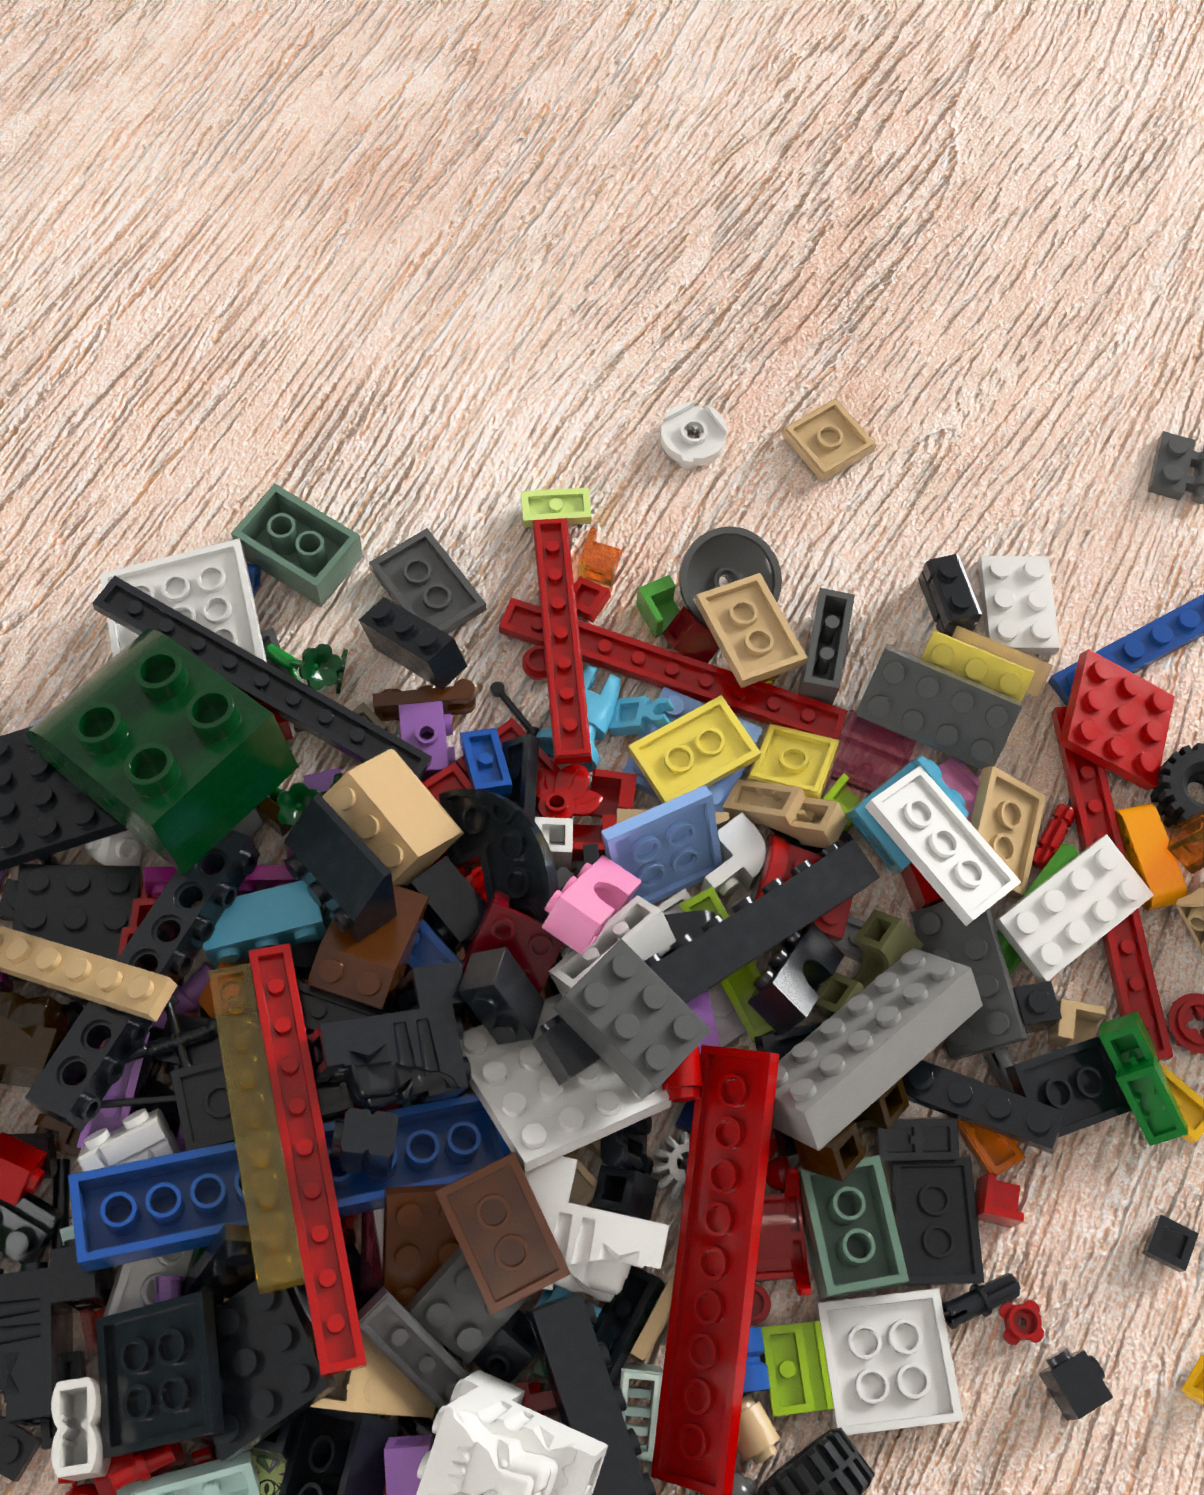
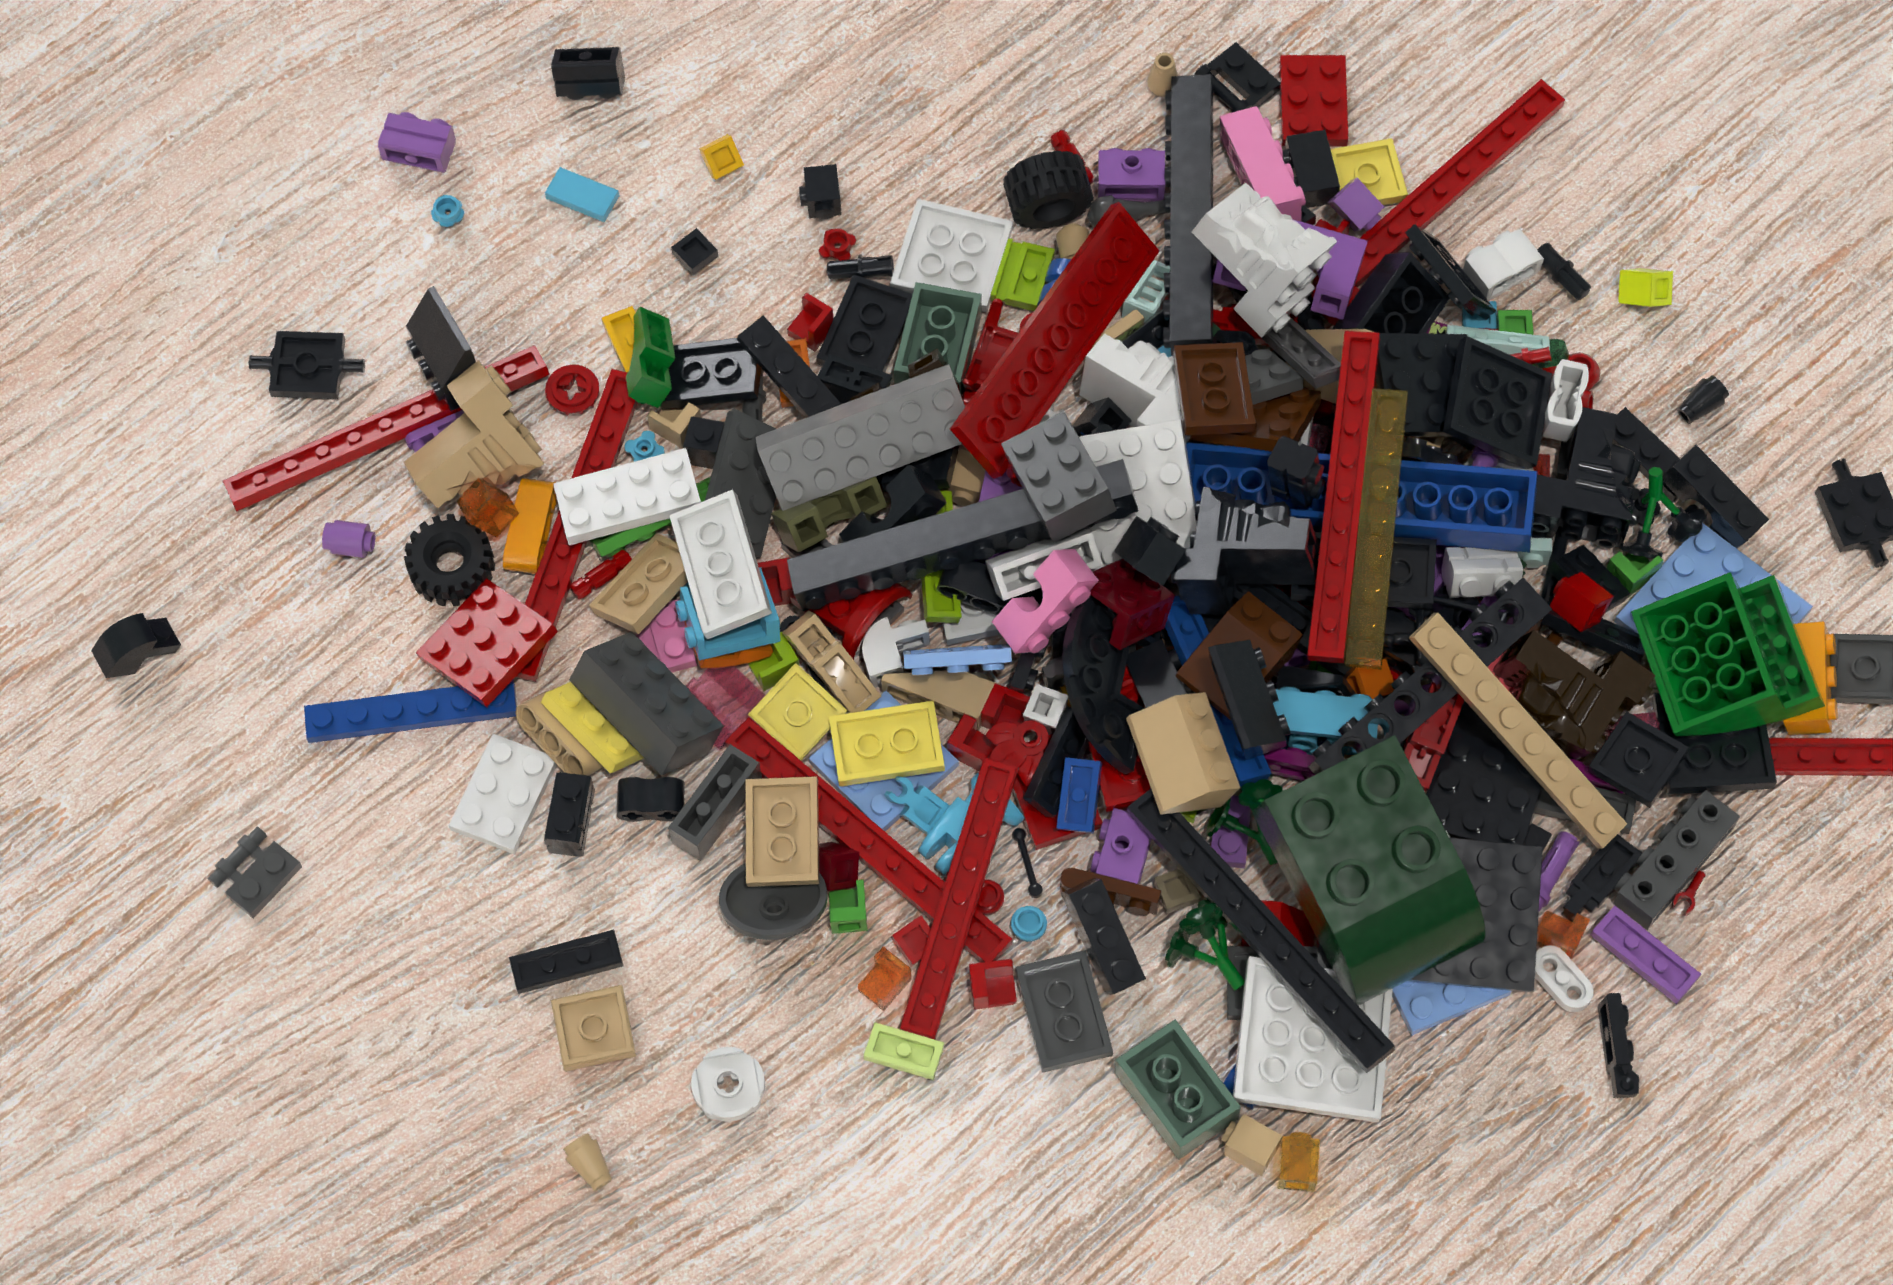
camera: 150 degrees left, 0 degrees up
(168, 528) = (1298, 1162): none -> clear yellow brick
(212, 525) = (1251, 1144): none -> tan brick
(490, 653) = (1028, 923): none -> medium azure plate
(501, 587) = (992, 984): none -> red panel
(777, 342) = (588, 1161): none -> tan cone
(881, 487) = (566, 961): none -> black tile
(886, 890) = (778, 580): none -> red panel
(895, 630) = (649, 798): none -> black axle
(1078, 989) = (647, 440): none -> medium azure plate

